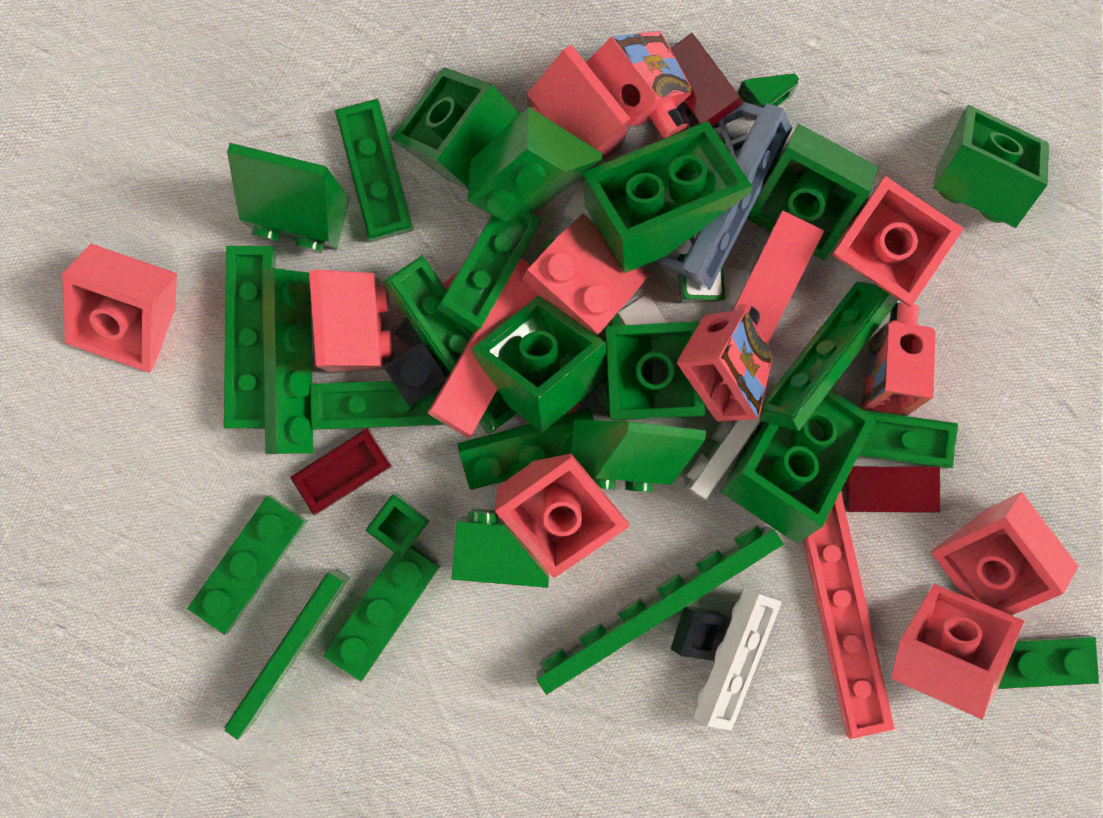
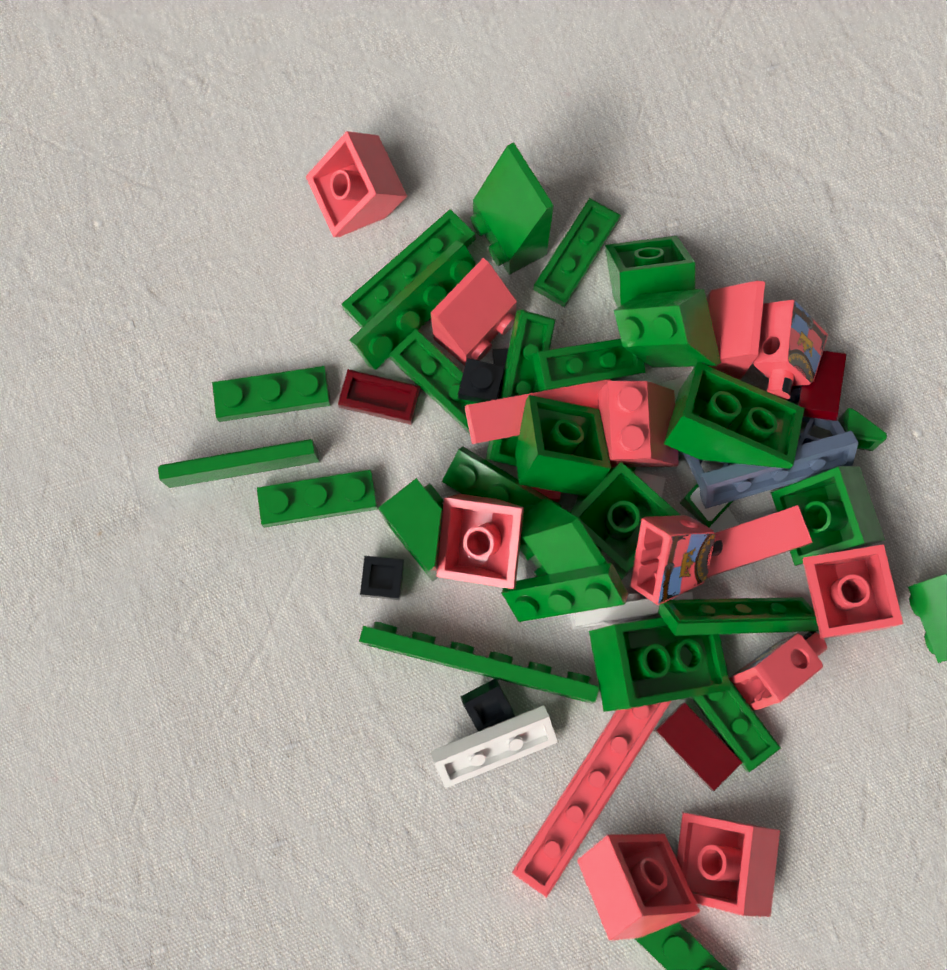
camera: 50 degrees right, 10 degrees down
(397, 525) = (378, 456): green slope -> none
(507, 620) = (382, 577): none -> black plate
(674, 481) = (566, 593): none -> green plate

